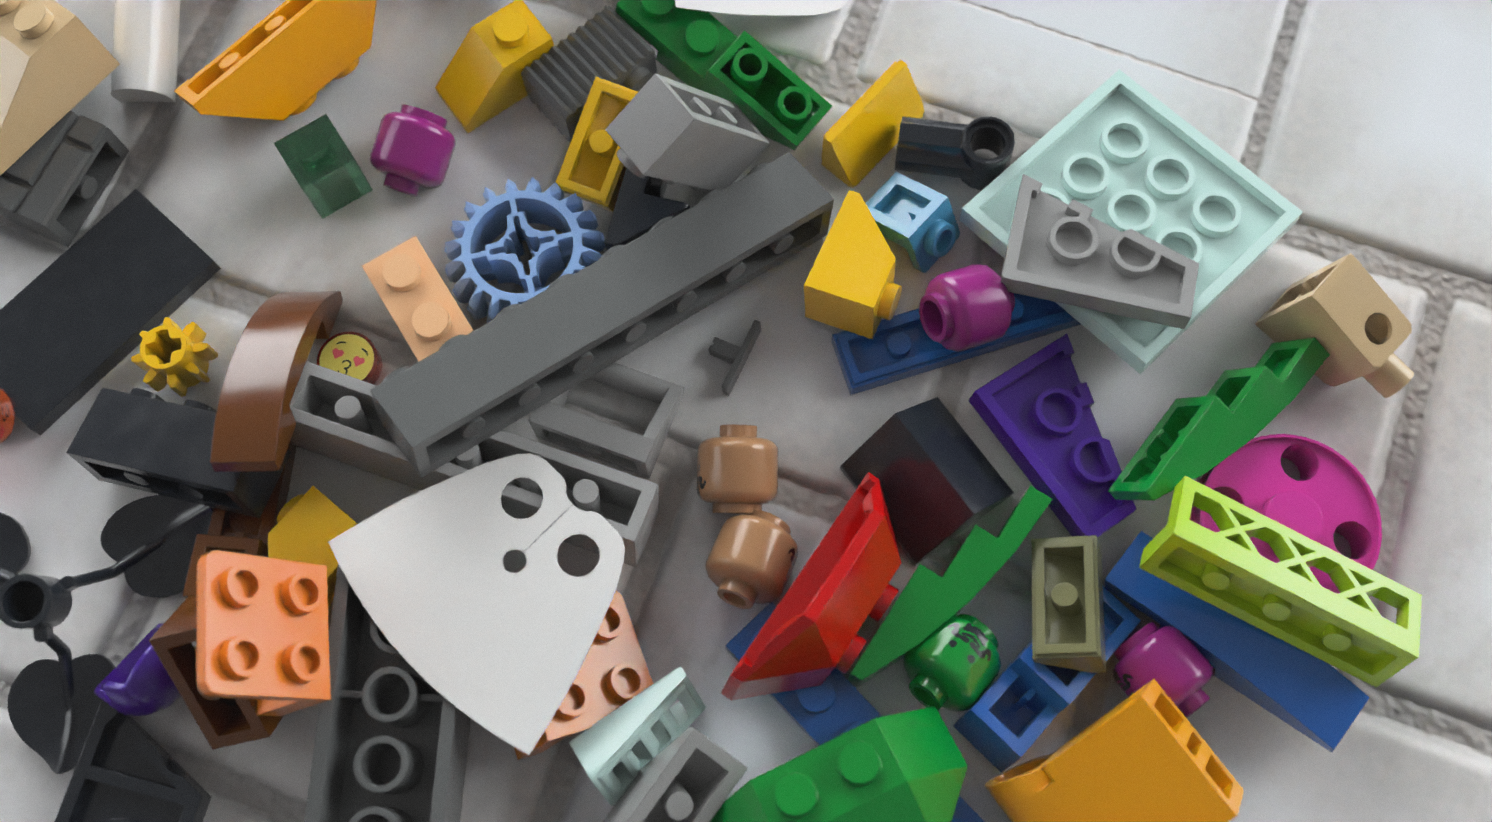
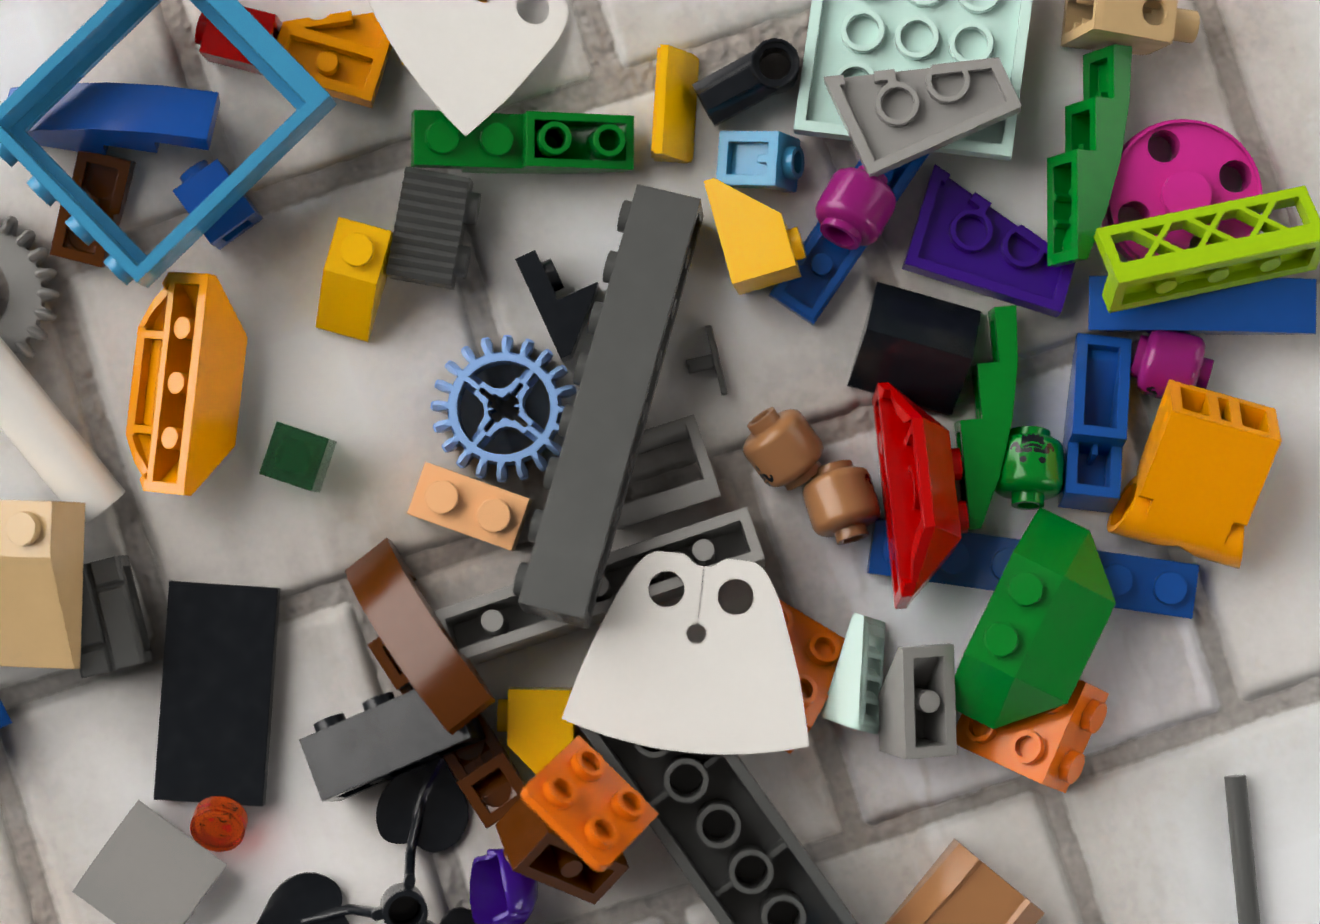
camera: 40 degrees left, 15 degrees up
(174, 356) = (303, 677): yellow gear -> none
(351, 355) = (442, 581): light yellow tile -> none
(412, 149) = (350, 392): magenta head -> none
(591, 160) = (492, 279): yellow slope -> none
(685, 136) = (566, 239): light grey brick -> none
(1068, 603) = (1077, 368): olive slope -> none

